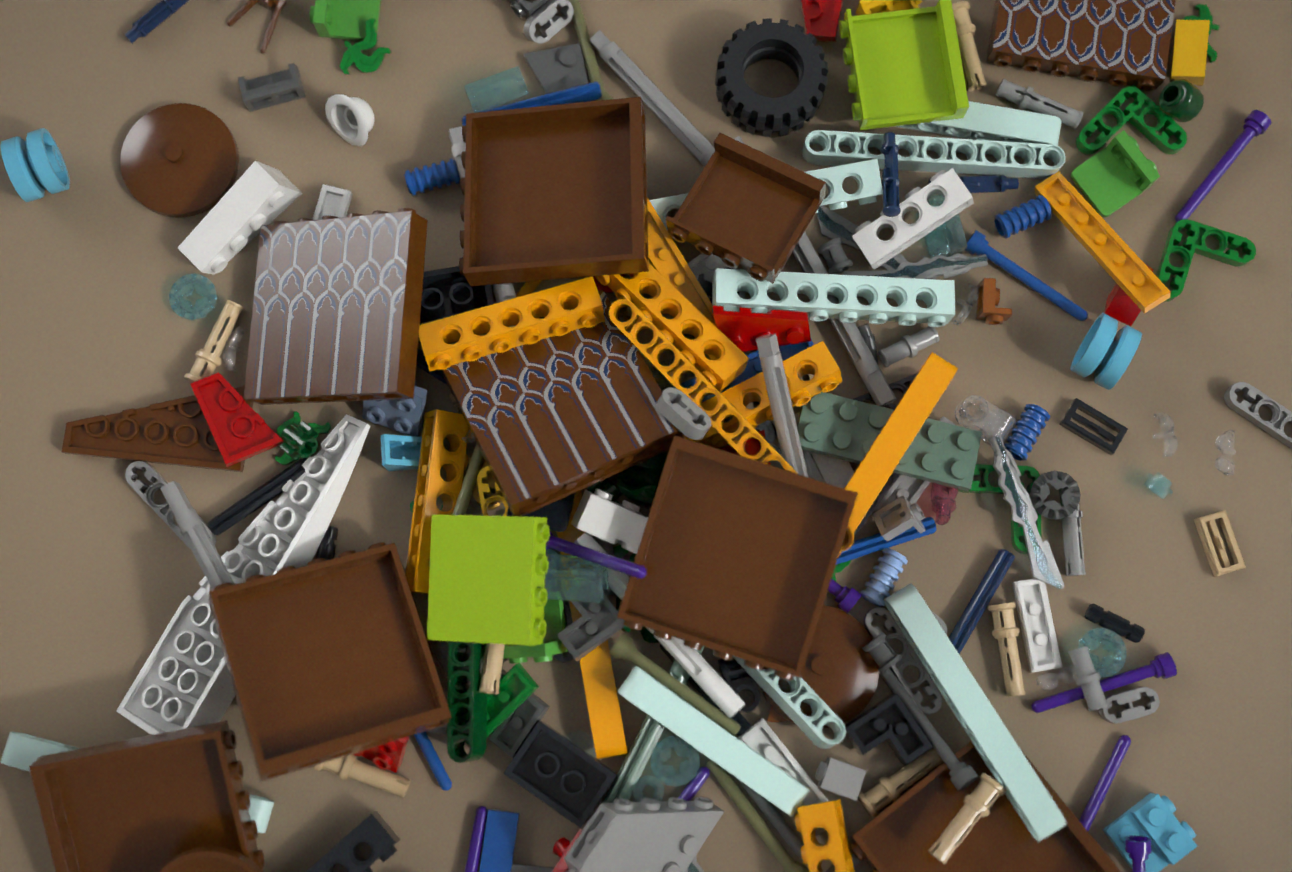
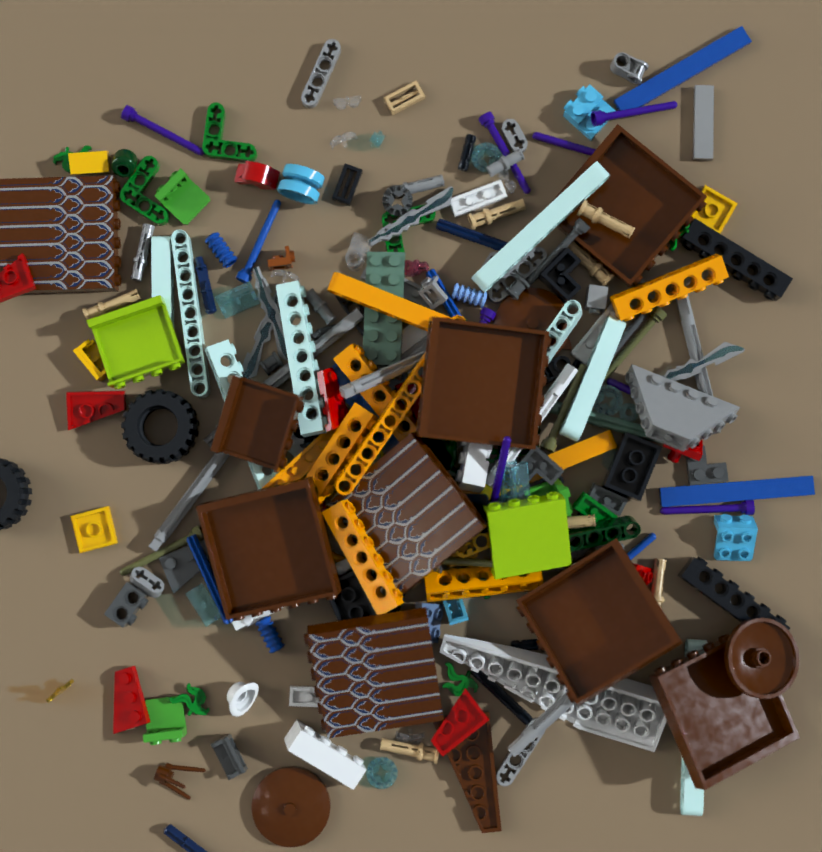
camera: 100 degrees left, 5 degrees up
(299, 440) = (462, 678): dark green gear -> none
(683, 413) = (401, 434): light grey beam -> none
(890, 176) = (217, 336): dark blue piece -> none
(943, 183) = (263, 337): white brick -> none
(1026, 432) = (360, 224): blue piece -> none
(1103, 243) = (231, 197): light orange plate -> none

